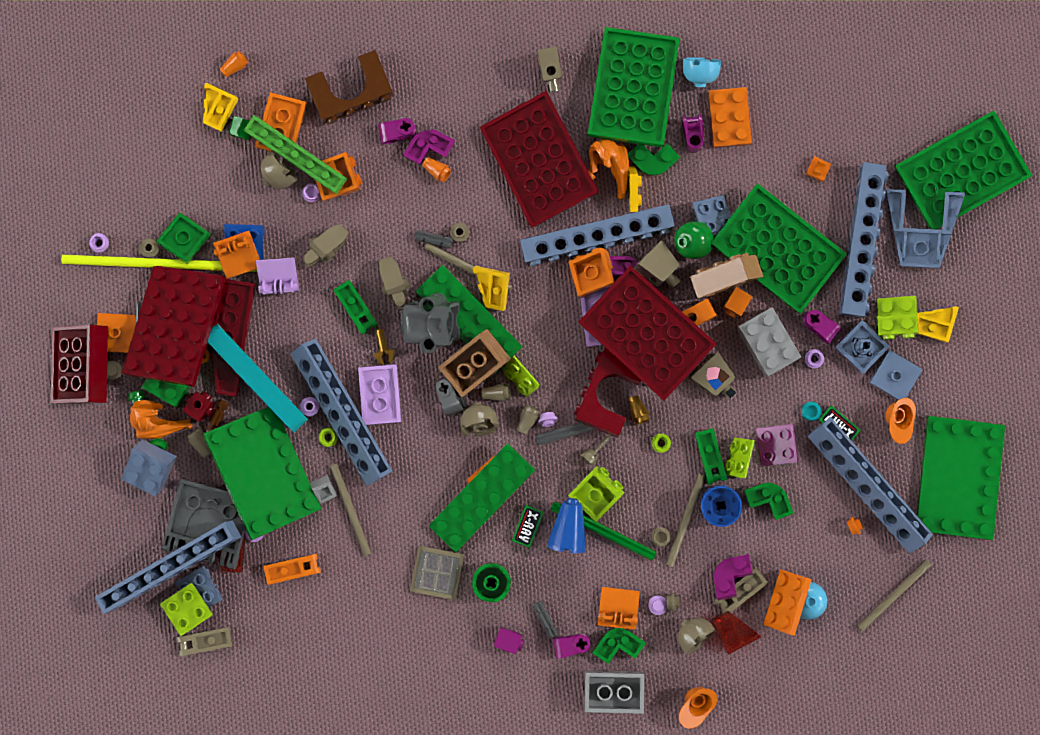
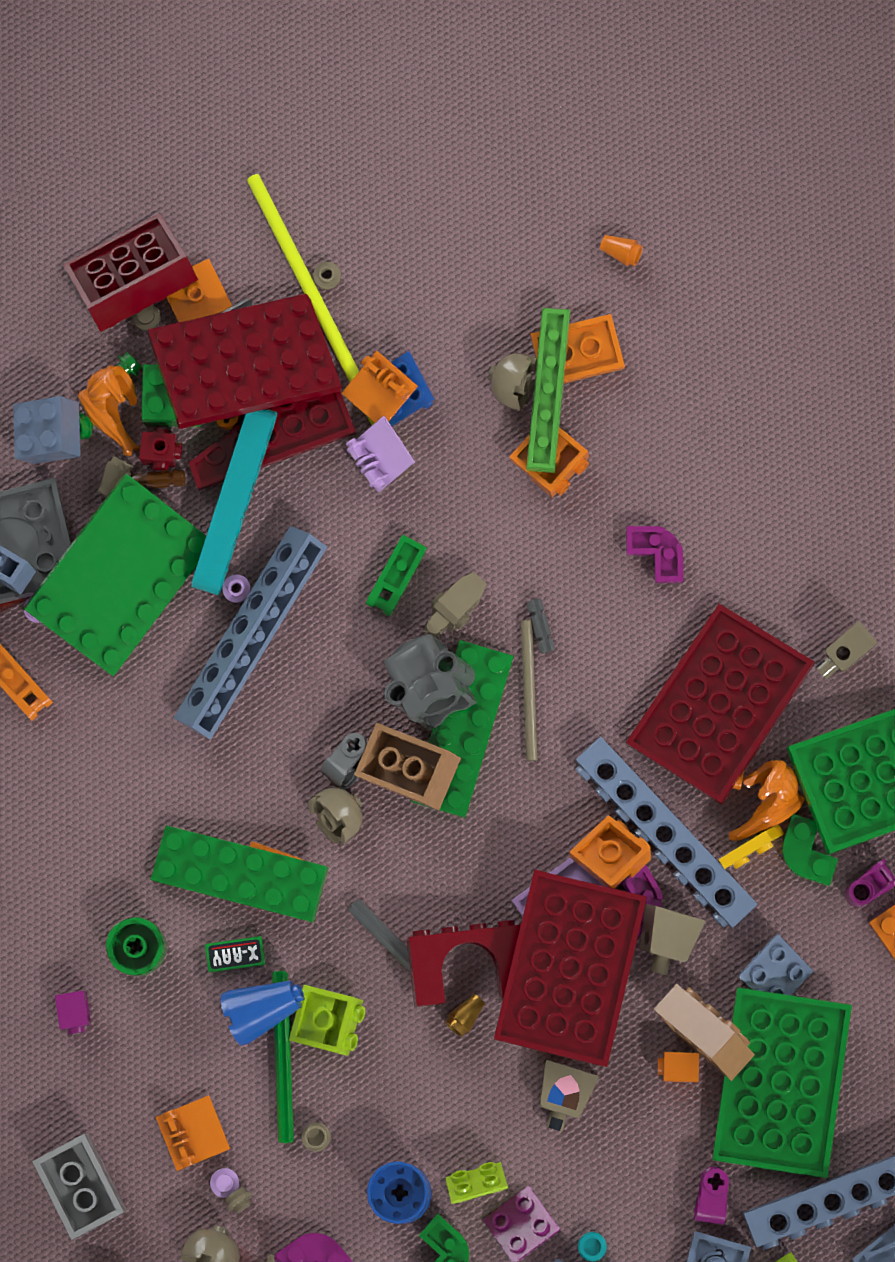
camera: 60 degrees right, 5 degrees down
(93, 242) = (298, 202): lavender plate -> none
(183, 238) = (363, 310): green plate -> none
(217, 107) = (554, 260): yellow wing -> none
(237, 127) = (541, 299): green slope -> none
(311, 193) = (511, 437): lavender plate -> none
(323, 441) = (204, 627): lime plate -> none
(323, 489) = (140, 665): light grey slope -> none
(325, 246) = (454, 493): dark tan hinge -> none
(332, 108) = (692, 444): reddish brown arch -> none
(350, 509) = (132, 714): dark tan piece -> none
(379, 394) = (300, 669): lavender plate -> none
(383, 347) = (363, 640): pearl gold bar -> none
(394, 130) = (650, 496): magenta piece -> none
(437, 169) = (633, 580): orange cone -> none
(437, 572) = (111, 870): clear piece -> none
(461, 238) = (564, 662): dark tan plate -> none
(493, 286) = (521, 736): yellow wing -> none
(498, 392) = (387, 818): dark tan cone -> none
(520, 376) = (426, 827): lime hinge -> none
(528, 418) = (375, 876): dark tan cone -> none
(545, 619) = (126, 1044): dark grey axle -> none
(547, 419) = (388, 903): lavender plate -> none
(567, 646) = (107, 1093): magenta piece -> none
(590, 455) = (372, 986): dark tan hinge -> none
(616, 639) = (151, 1153): green plate -> none
(665, 438) = (449, 1069): lime plate -> none
(685, 520) = (356, 1158): dark tan piece -> none
(693, 240) = (729, 962): green cylinder -> none
(703, 311) = (642, 1027): orange torso -> none
(710, 455) = (459, 1143): green plate -> none
(768, 342) = (650, 1138): light grey brick -> none
(820, 358) = (663, 1221): lavender plate -> none

